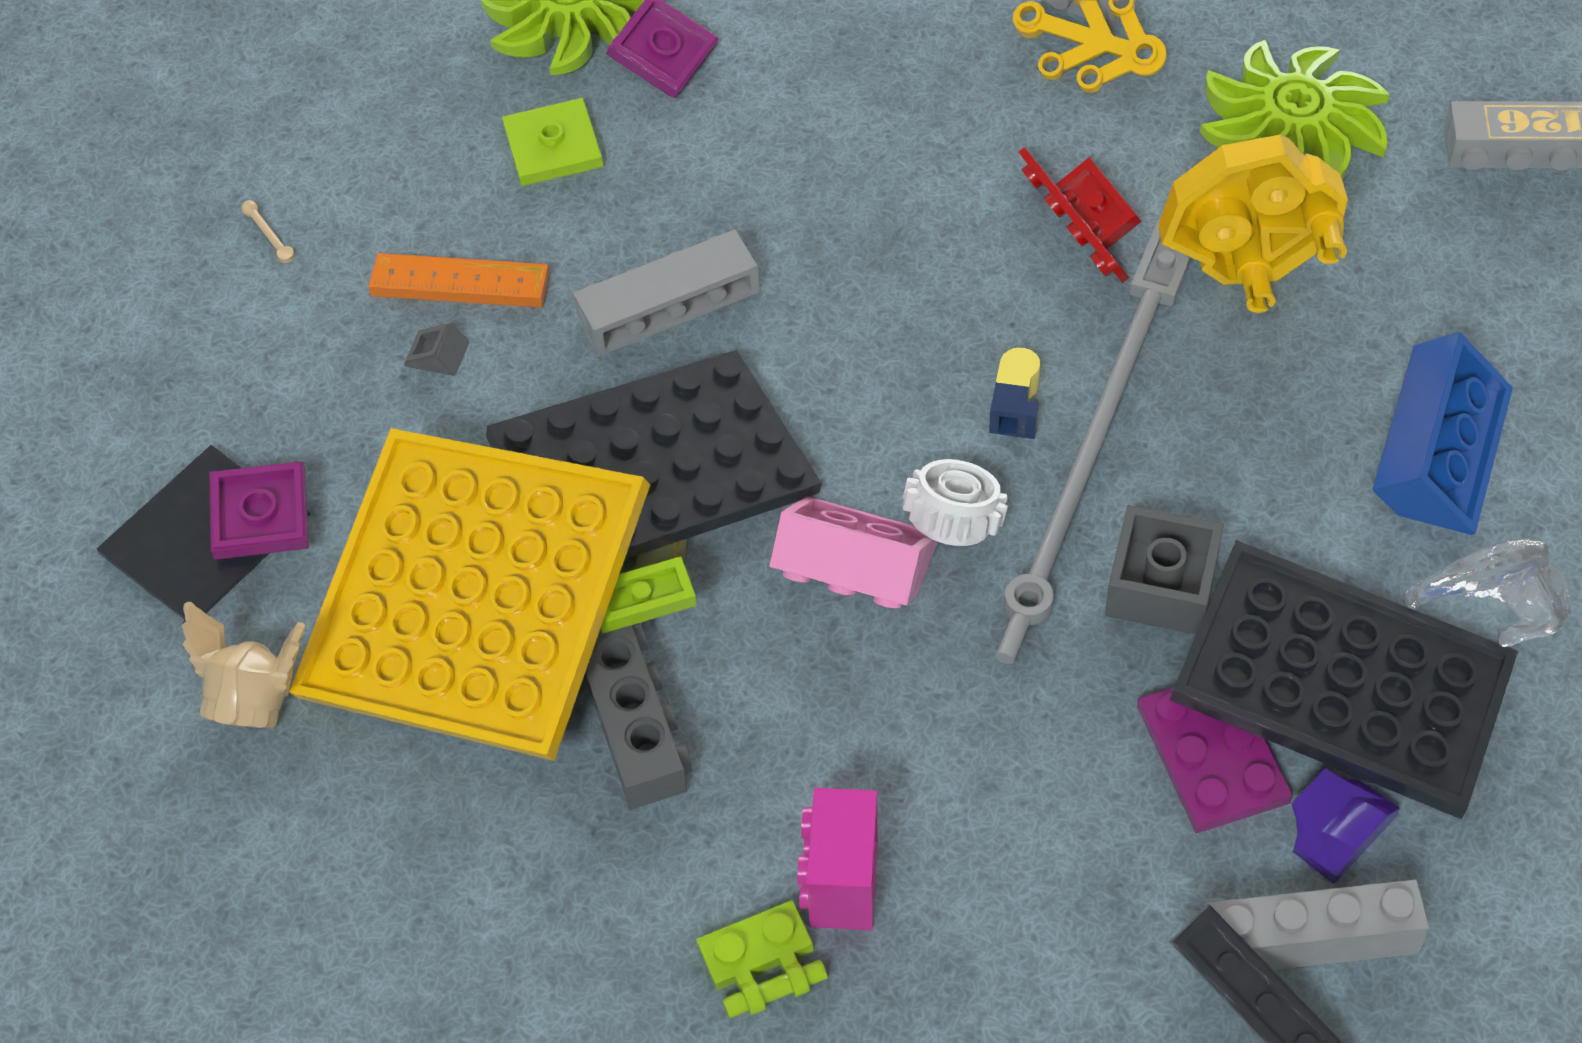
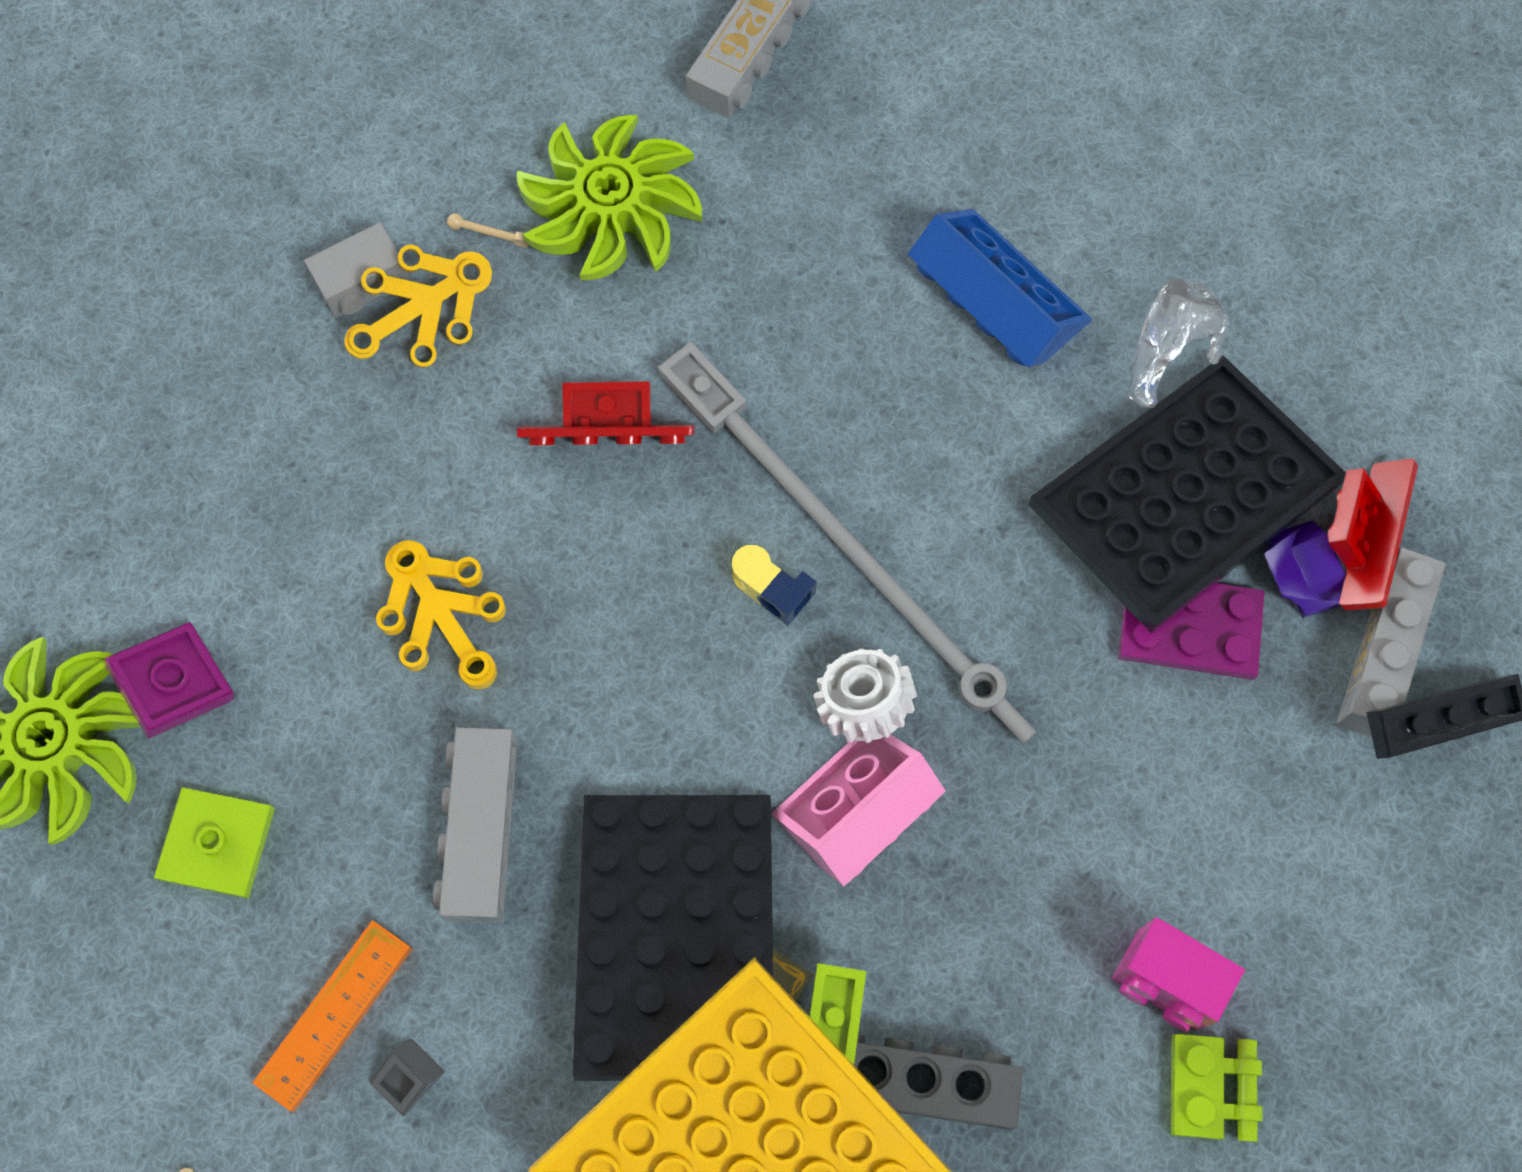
camera: 65 degrees left, 15 degrees up
(831, 182) = (437, 607): none -> yellow plant
(1163, 569) = (1022, 566): dark grey brick -> none
(1190, 31) = (456, 222): none -> tan hinge
(1256, 214) = (733, 288): yellow brick -> none
(1422, 844) = (1371, 529): none -> red bracket

